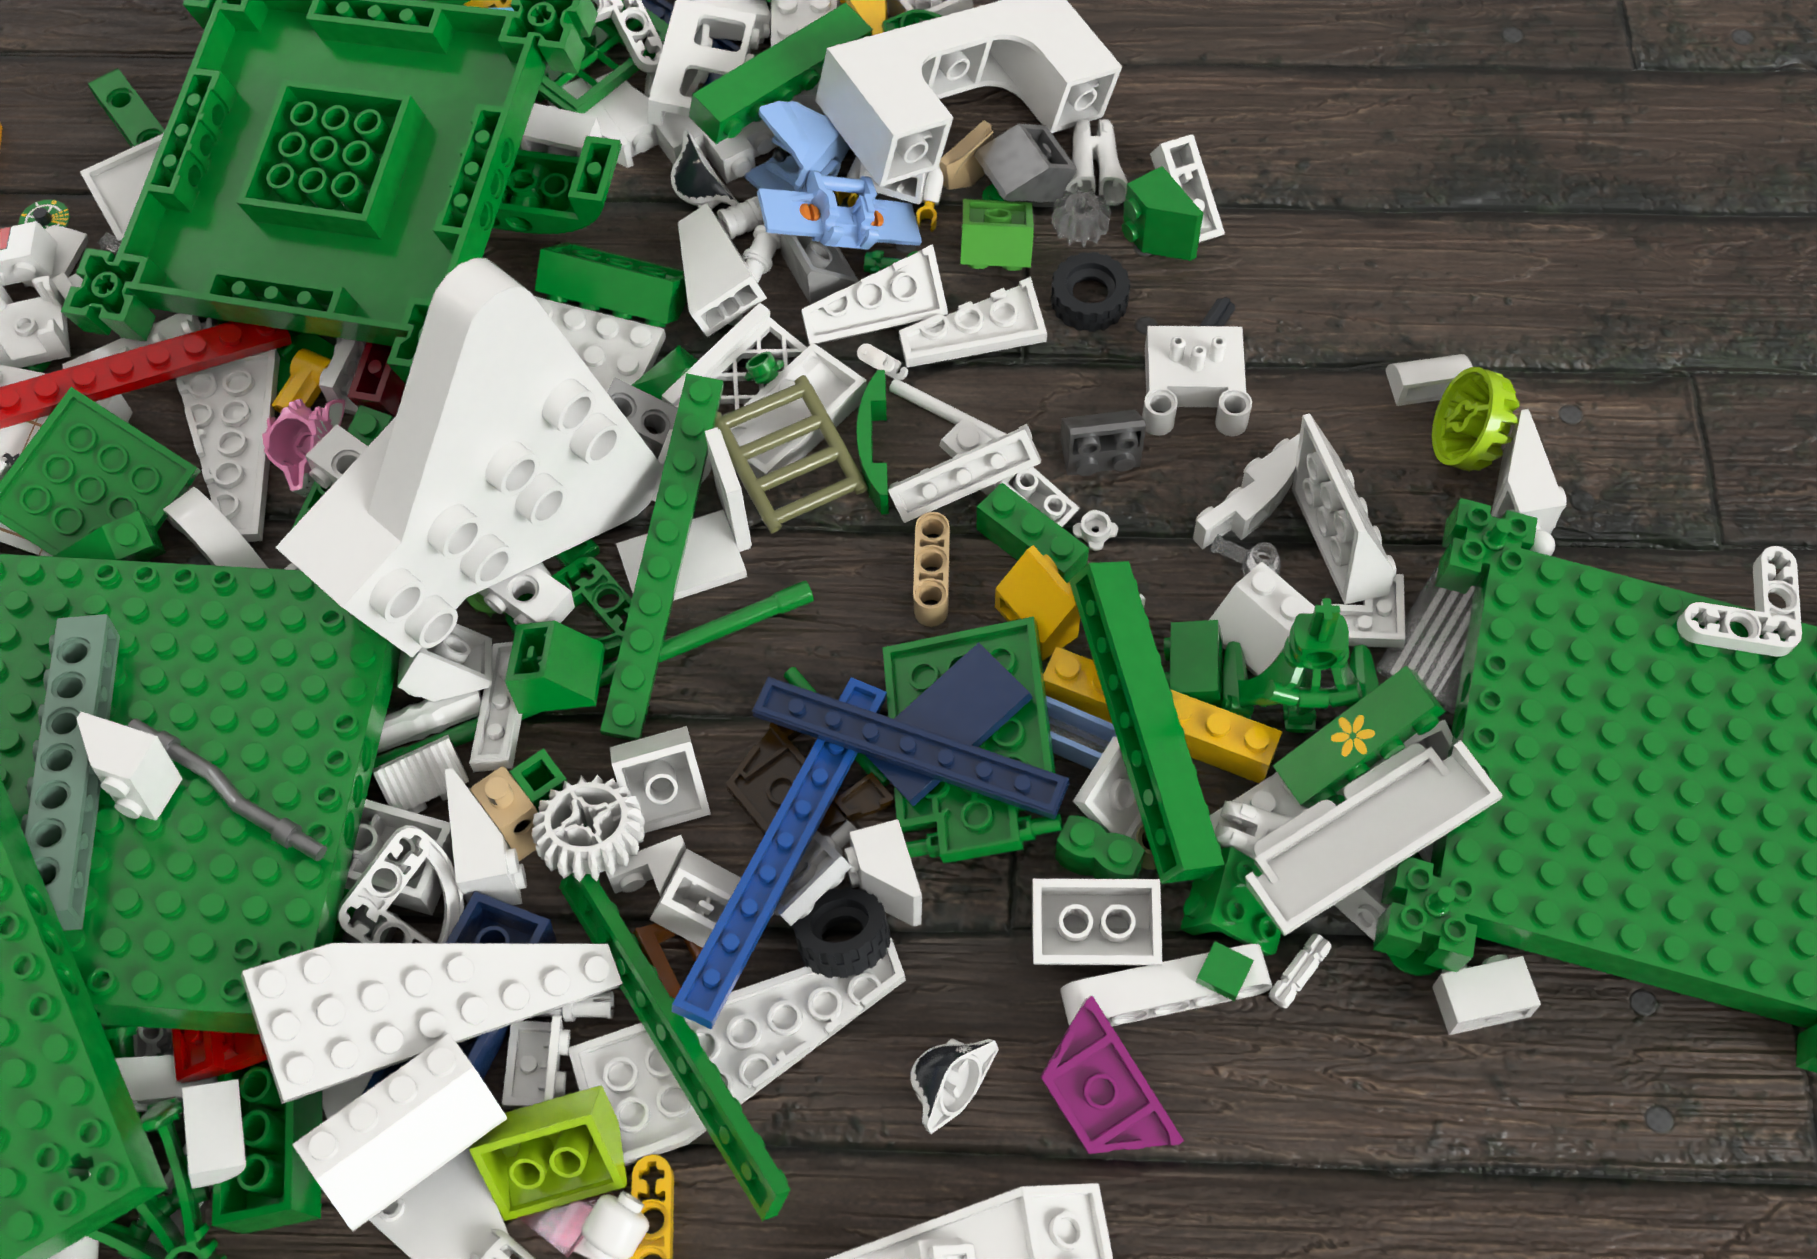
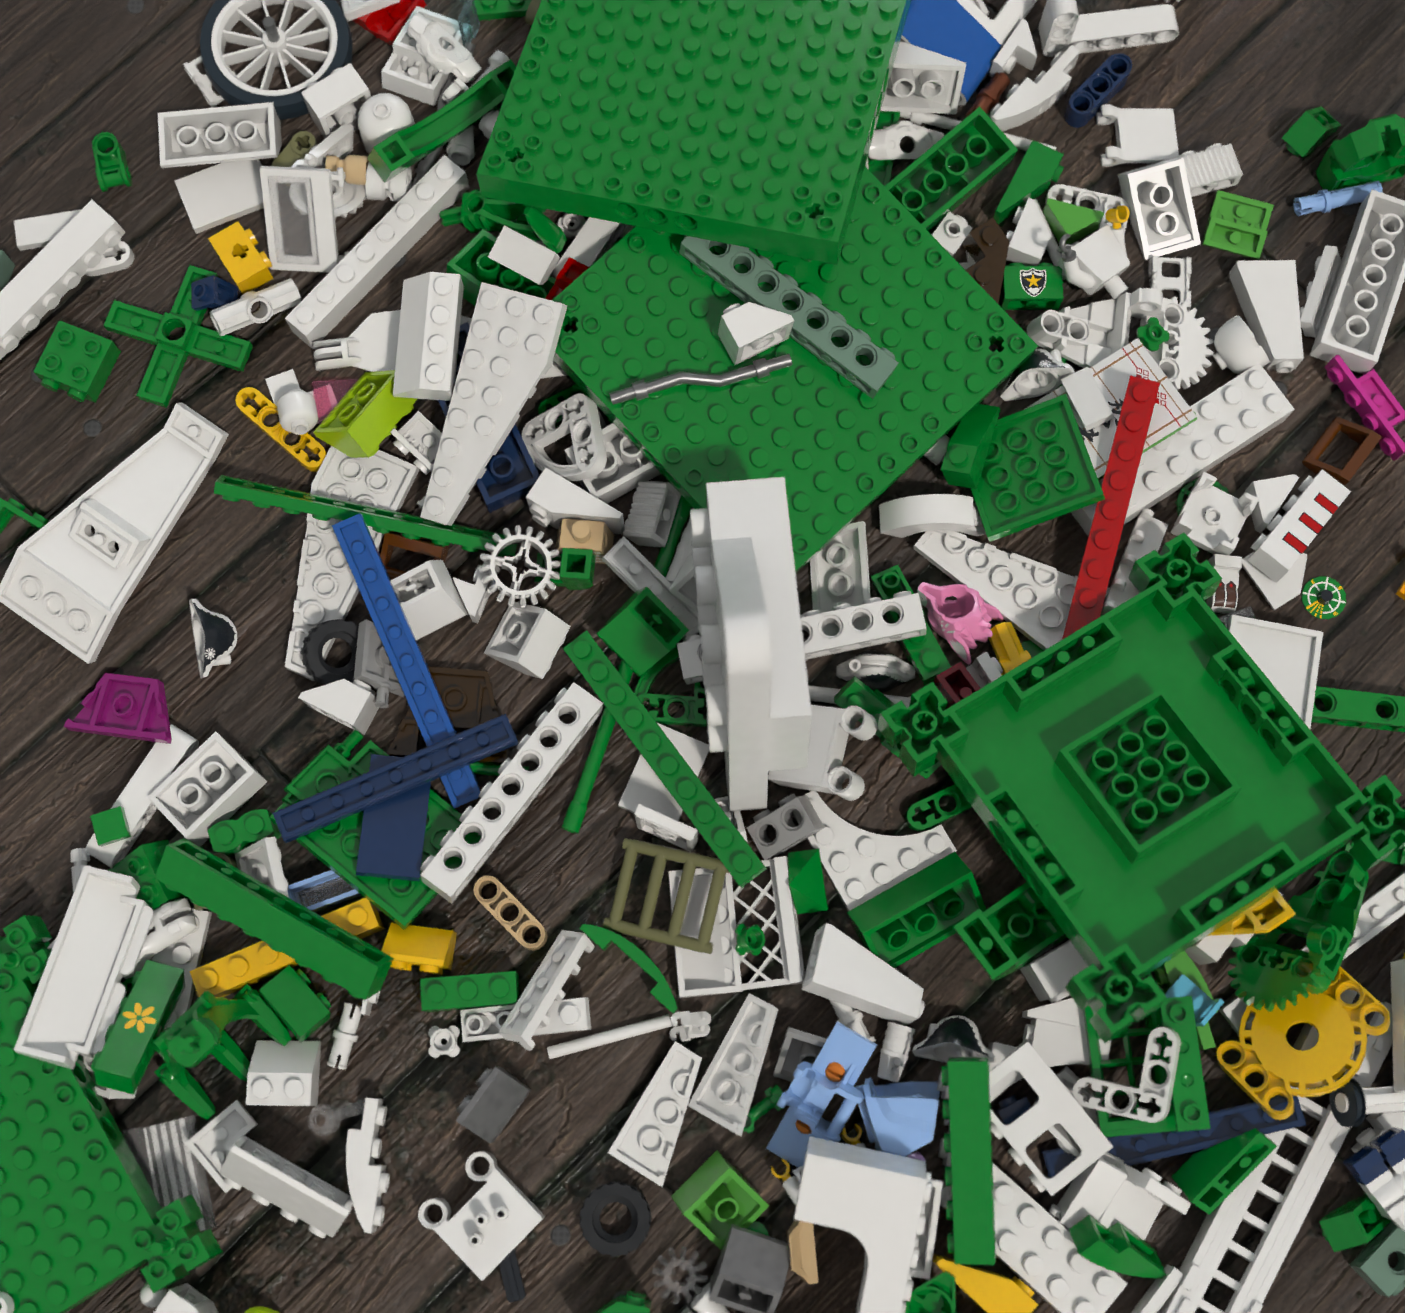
camera: 130 degrees right, 15 degrees up
(800, 640) = (451, 882): none -> white brick
(1179, 605) = (345, 1036): none -> white pin

